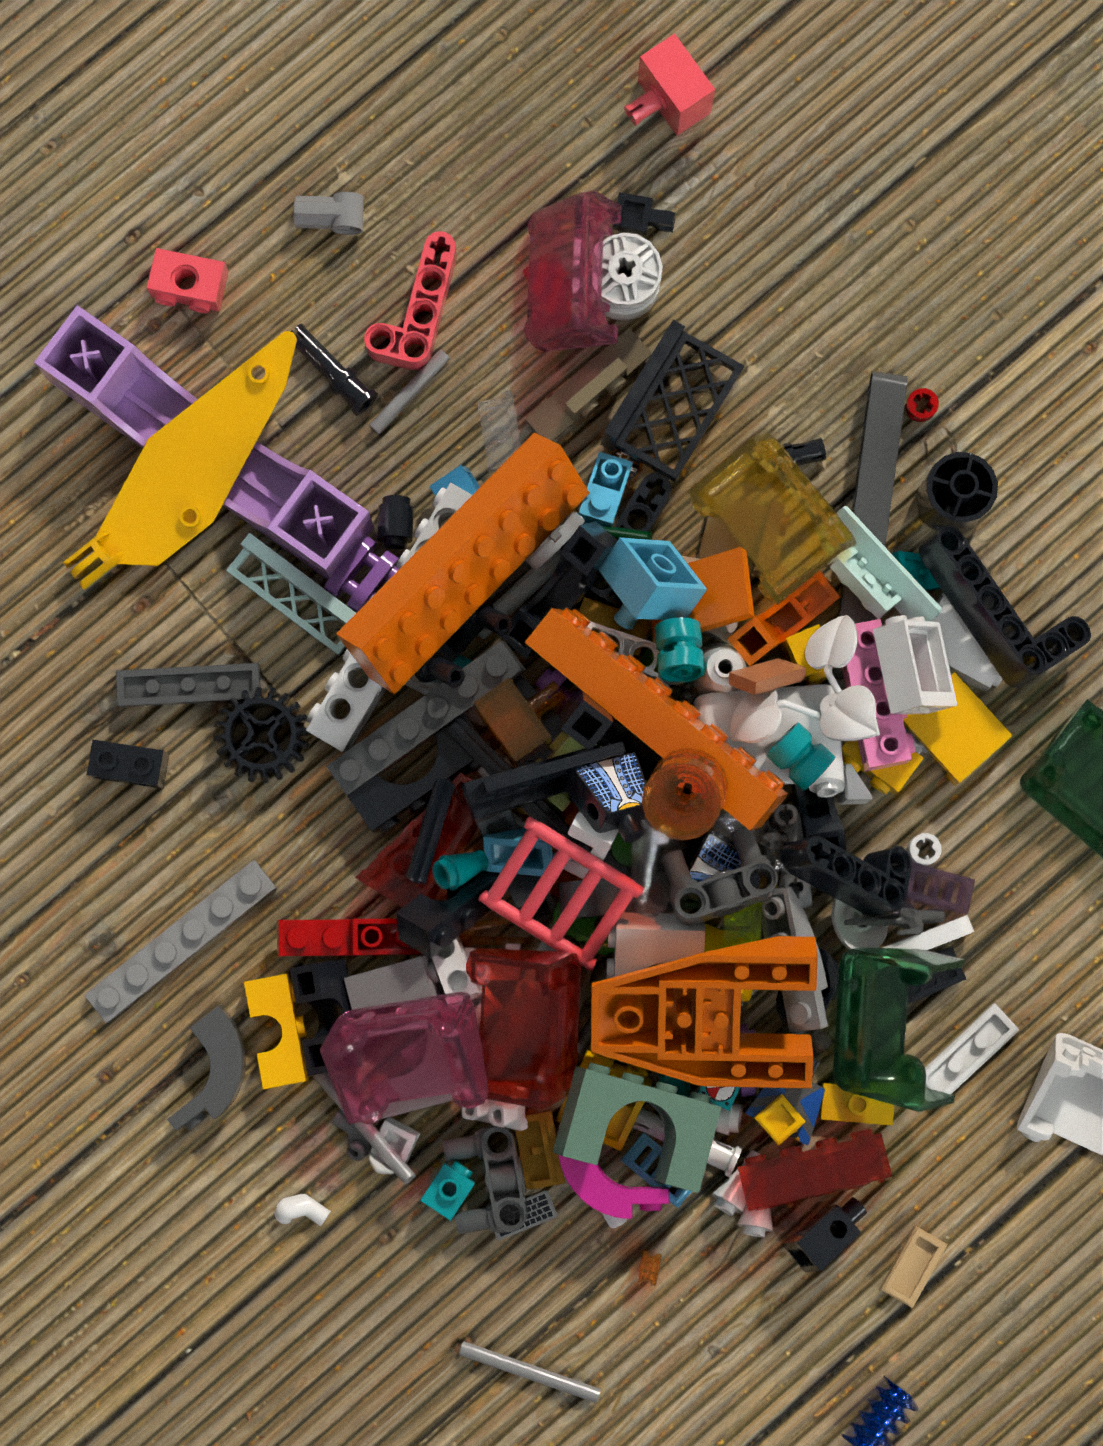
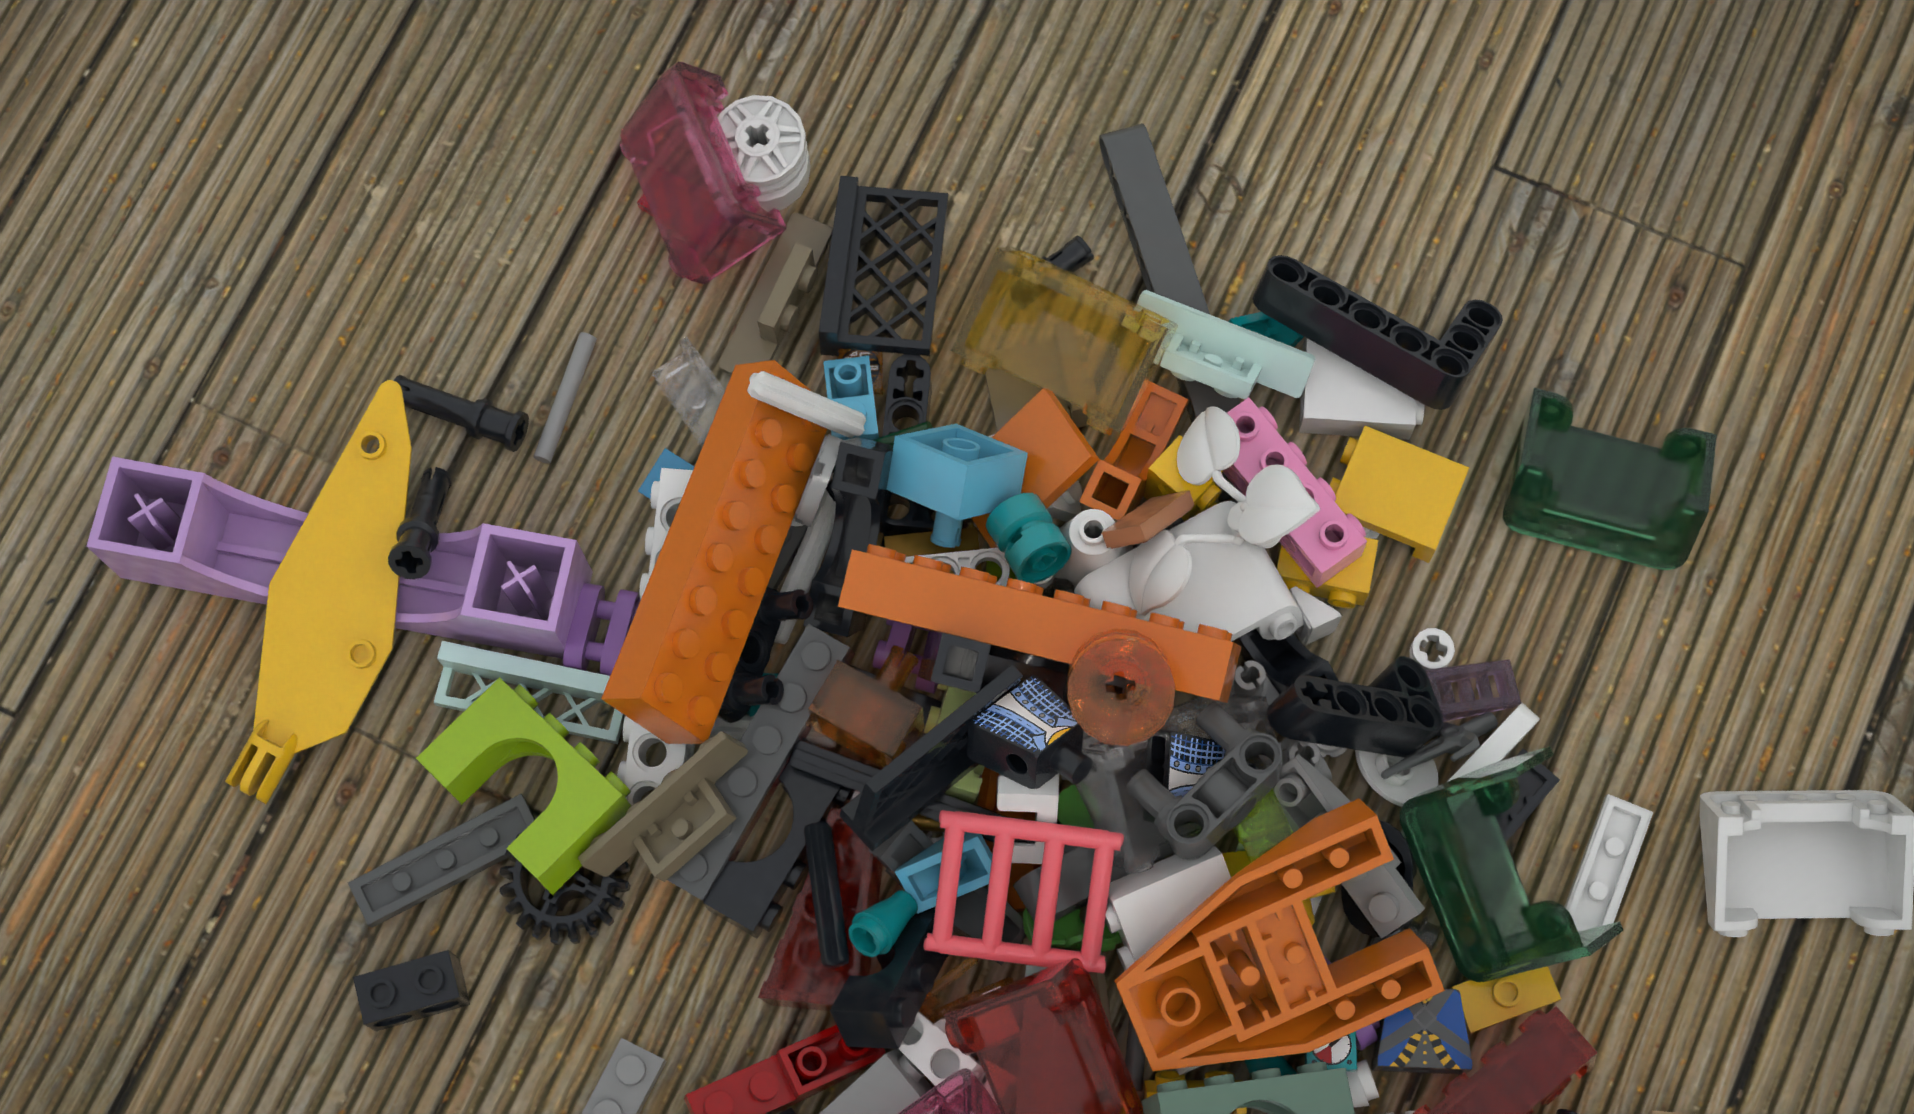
camera: 20 degrees left, 10 degrees down
(171, 267) = (216, 375): coral brick -> none
(265, 450) = (418, 533): none -> black pin
(296, 694) = (504, 728): none -> lime arch
(339, 213) = (391, 231): light grey piece -> none
(351, 734) = (674, 817): none -> dark tan bracket
(395, 521) = (615, 552): black brick -> none
(420, 300) = (533, 286): coral beam -> none
(568, 487) = (806, 404): none -> white axle
(639, 215) = (745, 79): black plate -> none
(779, 1119) = (1423, 1052): yellow tile -> none
(798, 754) = (1236, 594): teal wheel -> none
(914, 666) = (1316, 432): white window -> none
(933, 404) = (1187, 144): red bush -> none
(957, 492) = (1264, 216): black cylinder -> none

